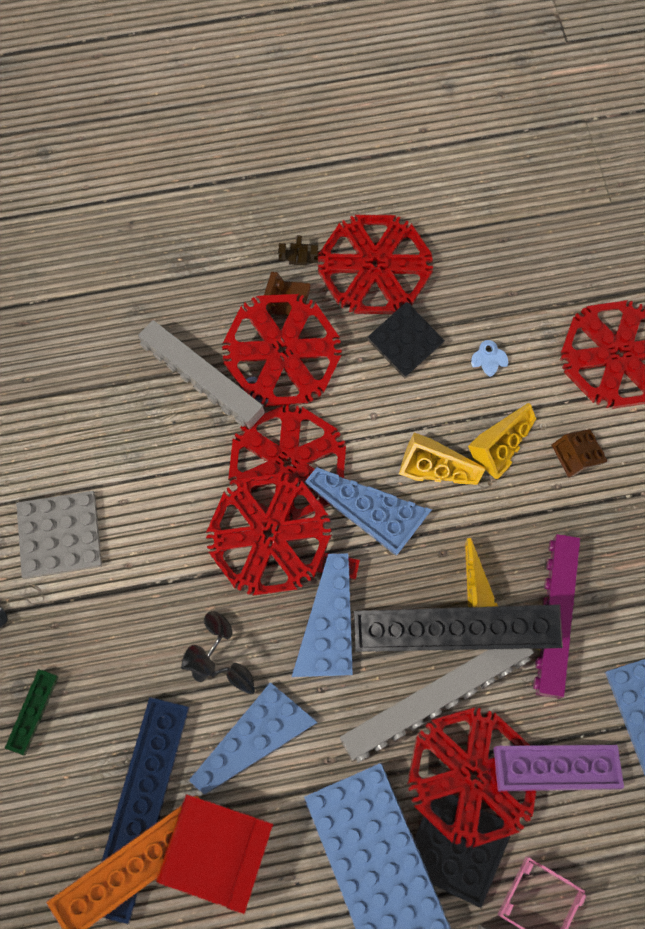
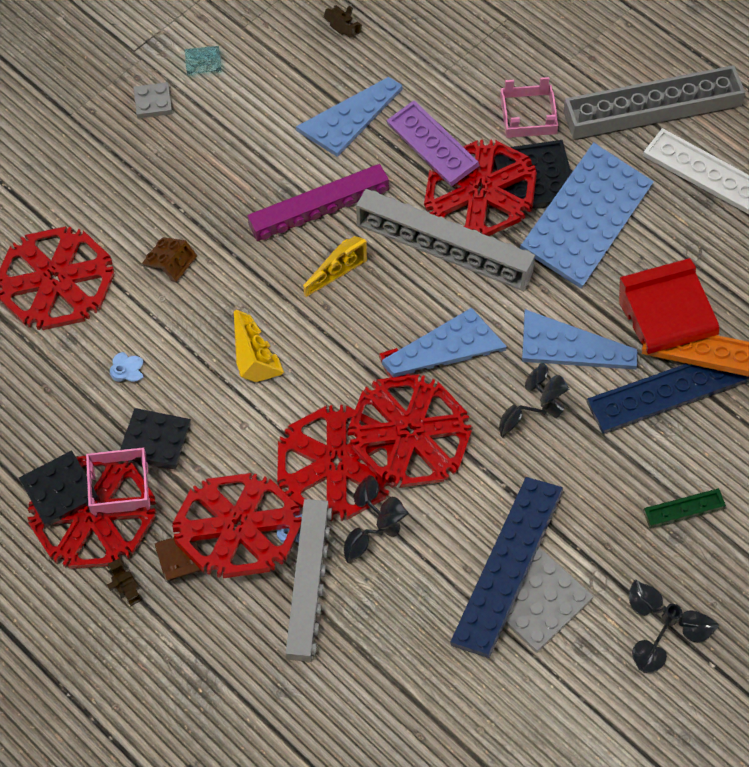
camera: 125 degrees left, 10 degrees down
(96, 529) = (506, 567): none -> dark blue plate
(187, 445) = (389, 515): none -> black plant
(374, 511) = (330, 365): medium blue wing -> none
(406, 272) = (116, 456): none -> bright pink piece
(408, 247) = (57, 488): none -> black plate
(459, 628) = (387, 246): black plate -> none
(498, 443) = (209, 318): yellow wedge -> none

